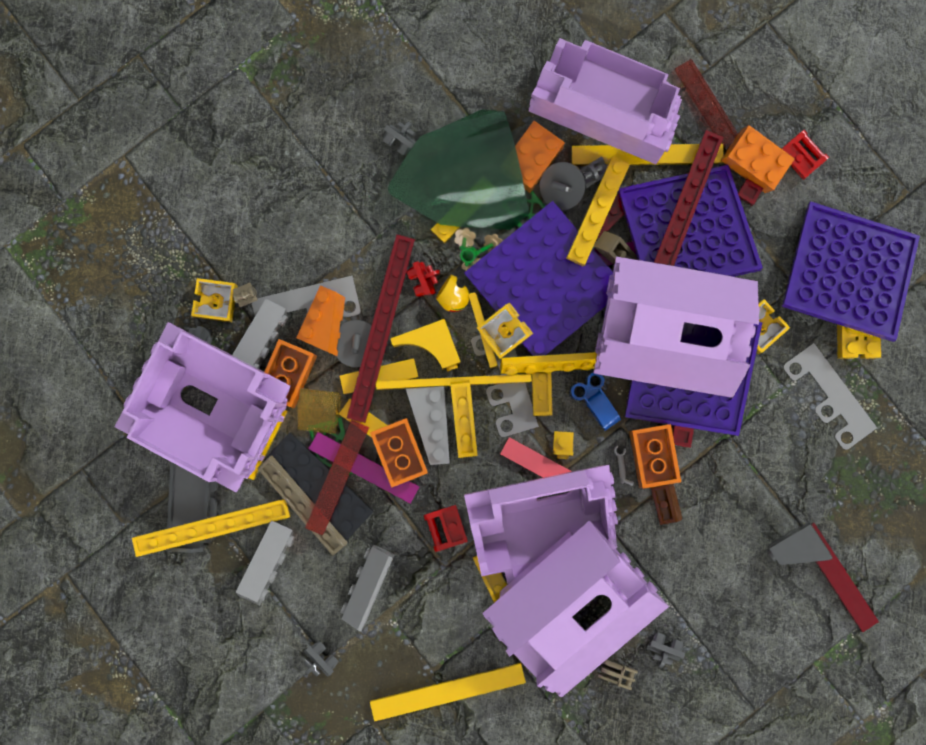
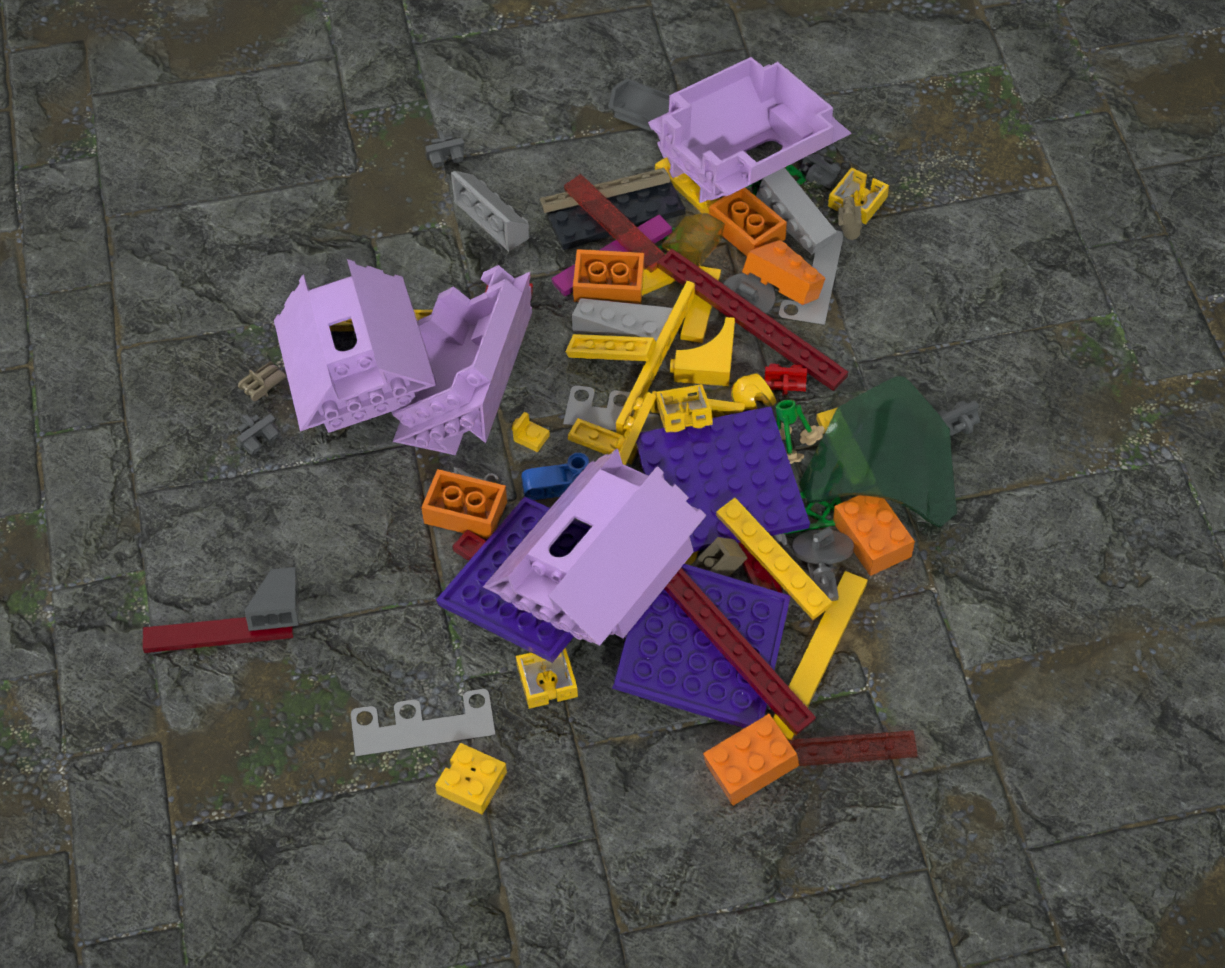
camera: 115 degrees right, 30 degrees down
(210, 527) = (627, 113): yellow tile -> none
(265, 563) = (564, 138): light grey wedge -> none
(447, 691) = (348, 228): yellow tile -> none
(531, 459) = (528, 401): coral tile -> none
(608, 99) = (929, 619): lavender panel -> none
(666, 504) = (402, 504): reddish brown slope -> none
(749, 192) = (712, 736): dark red plate -> none
(803, 162) = (730, 816): red plate -> none
(851, 271) = (557, 799): dark purple plate -> none

